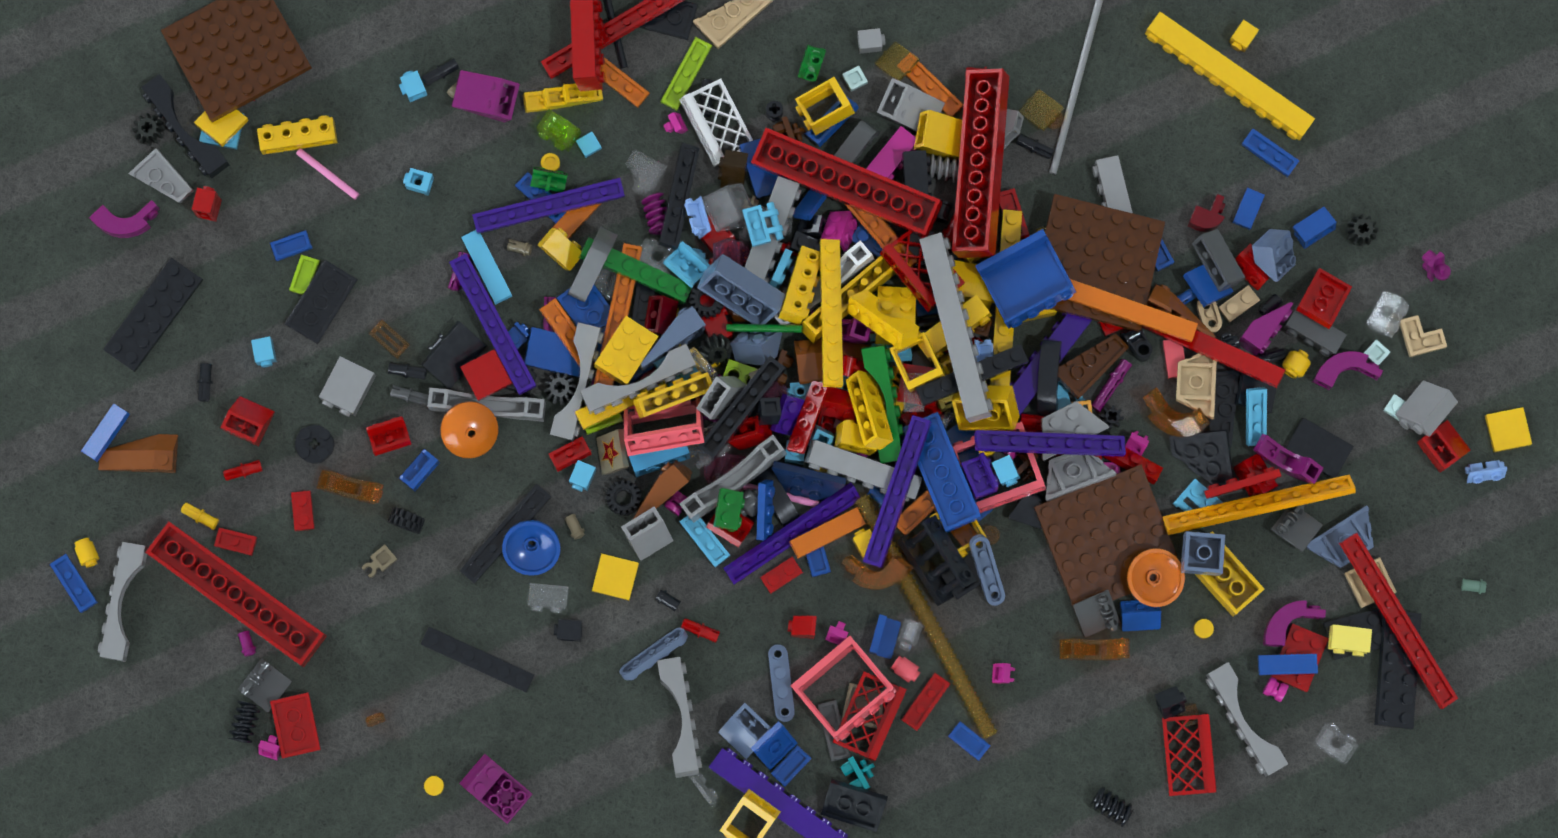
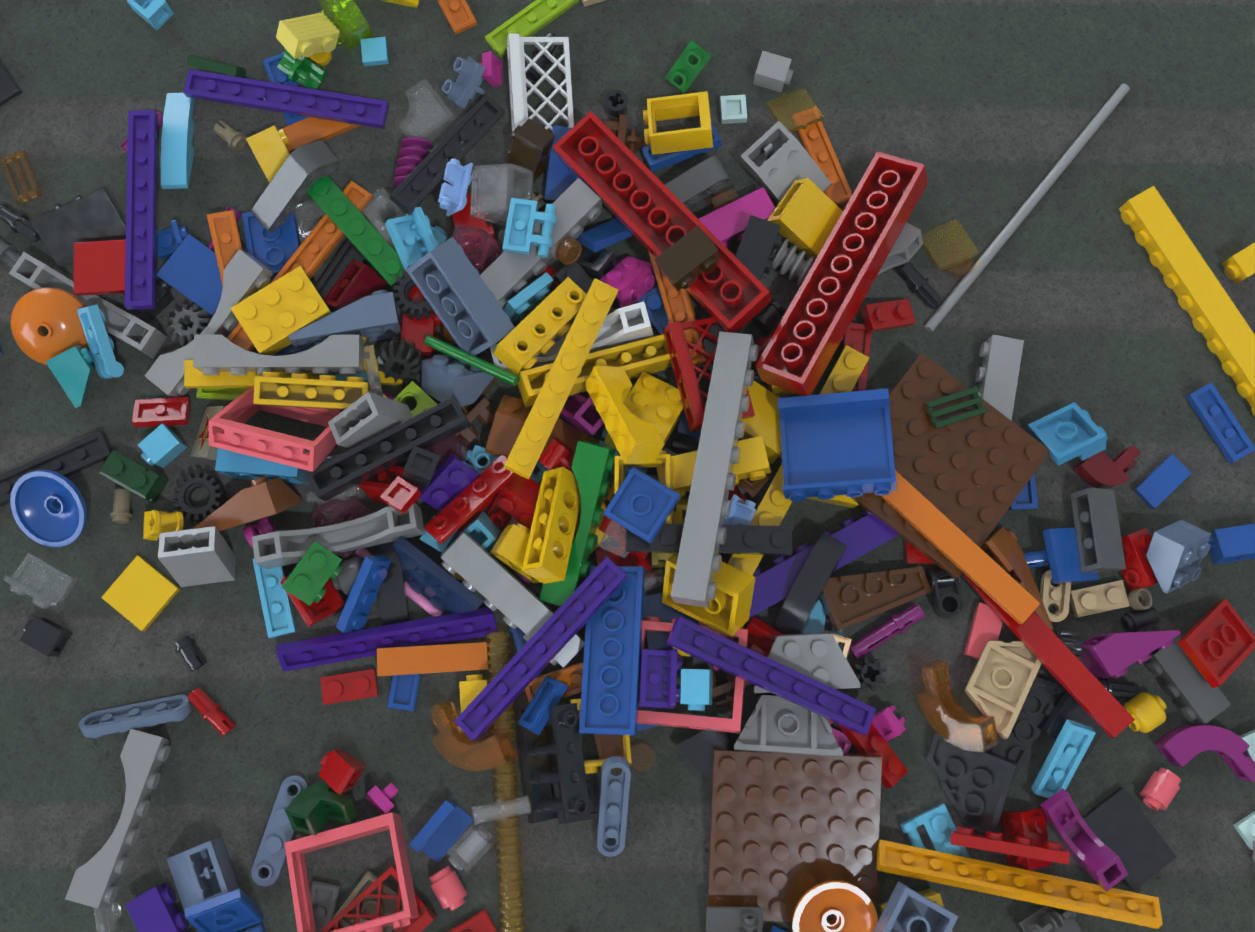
camera: 25 degrees right, 0 degrees up
(487, 203) = (216, 66): none -> dark green tile
(501, 452) = (73, 372): none -> teal slope
(508, 425) = (99, 342): none -> medium azure plate
(545, 155) = (307, 35): none -> light yellow brick
(574, 503) = (133, 476): none -> dark green brick
(610, 525) = (161, 522): none -> yellow piece
(665, 140) = (467, 83): none -> sand blue hips
(765, 433) = (400, 495): none -> plate
(793, 227) = (568, 250): none -> clear orange tile
(800, 652) = (317, 805): none -> dark green brick
(877, 146) = (723, 199): none -> clear orange tile
(879, 201) = (688, 259): none -> dark brown brick
(913, 527) = (539, 708): none -> blue tile
(917, 603) = (501, 810): none -> clear pin
(921, 371) = (642, 505): none -> blue tile
(1022, 176) = (888, 315): none -> red plate
(1103, 210) = (976, 400): none -> dark green tile
(1173, 205) = (1069, 434): none -> dark azure plate
(1267, 289) = (1145, 596): none -> dark tan hinge
(1326, 408) = (1160, 789): none -> coral brick

